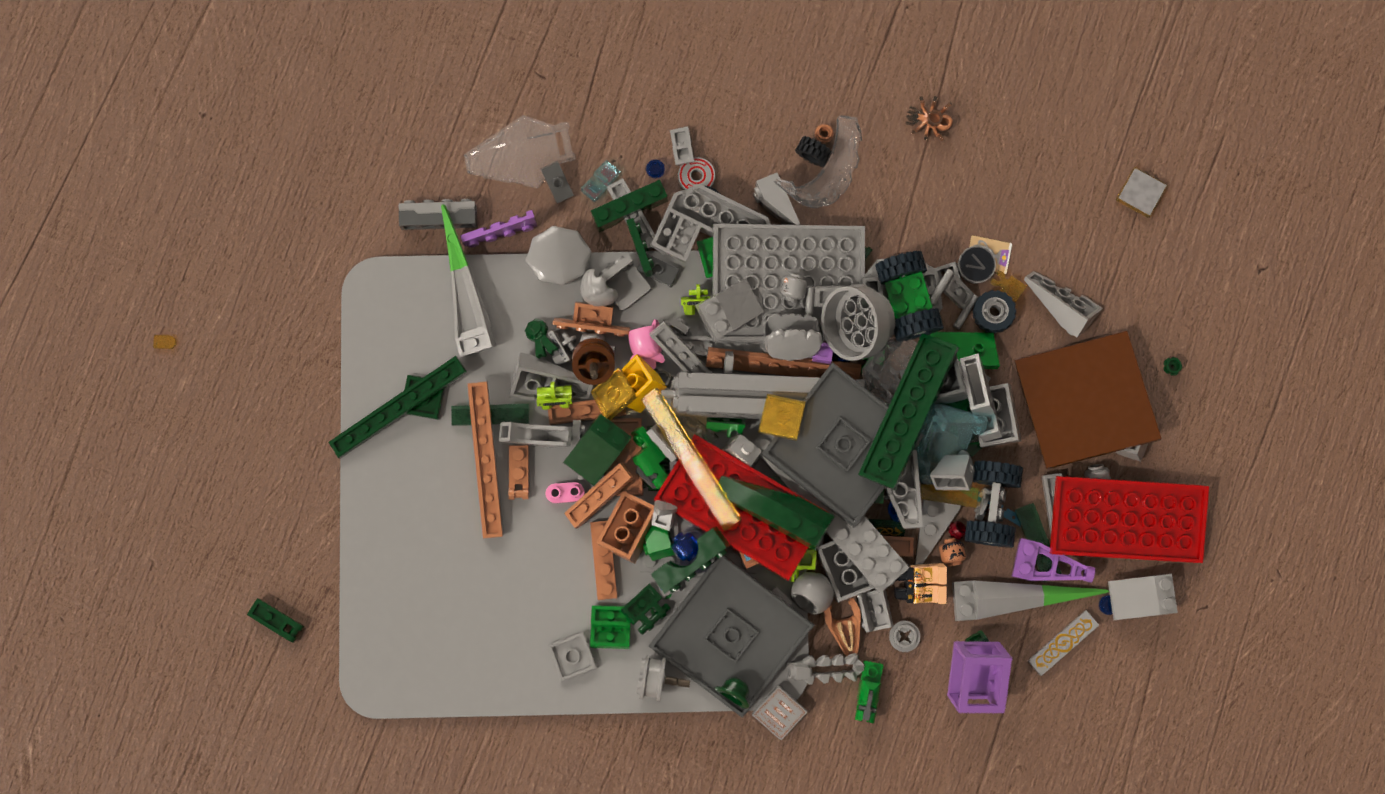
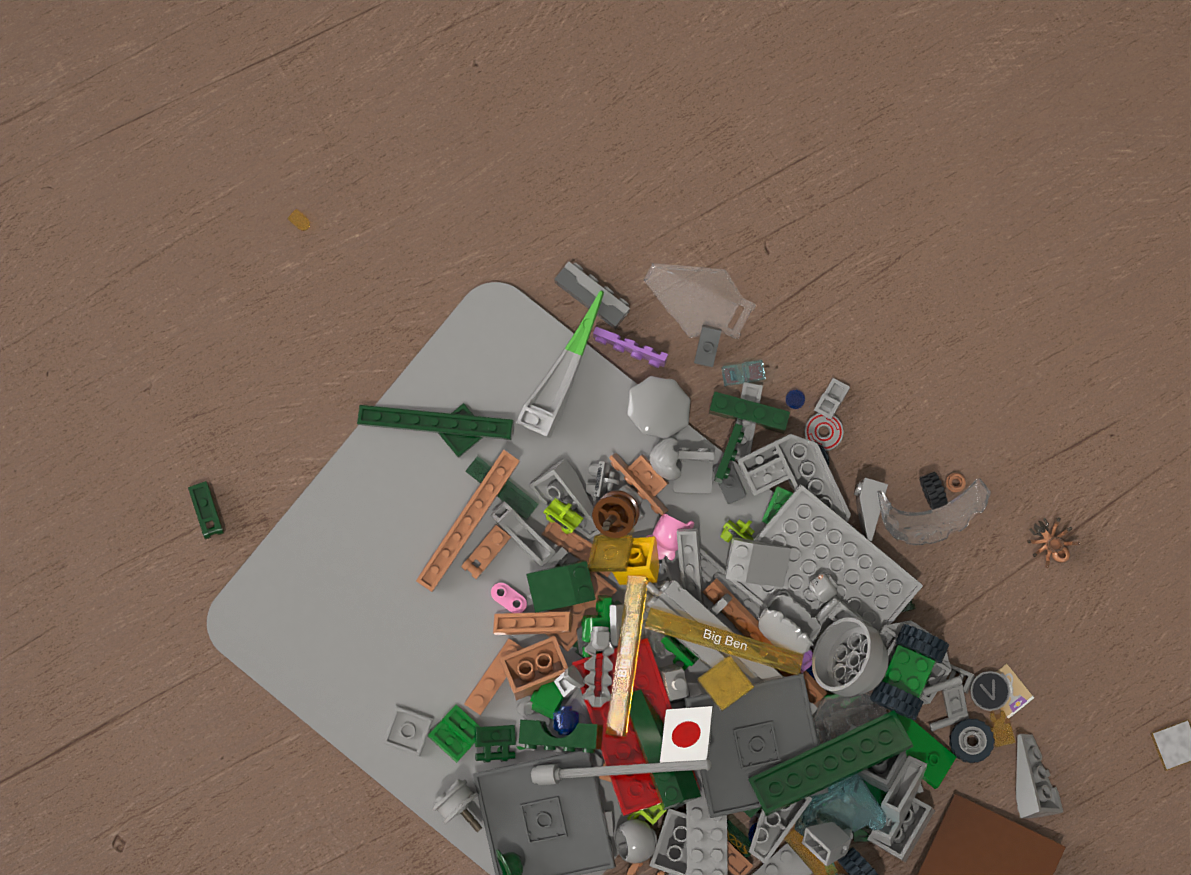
camera: 45 degrees right, 0 degrees up
(536, 332) = (592, 453): dark green piece -> none
(661, 466) = (599, 642): none -> light grey sword
(679, 326) = (708, 542): light grey plate -> none
(754, 386) = (724, 641): none -> clear yellow tile
(792, 490) = (683, 748): none -> flag

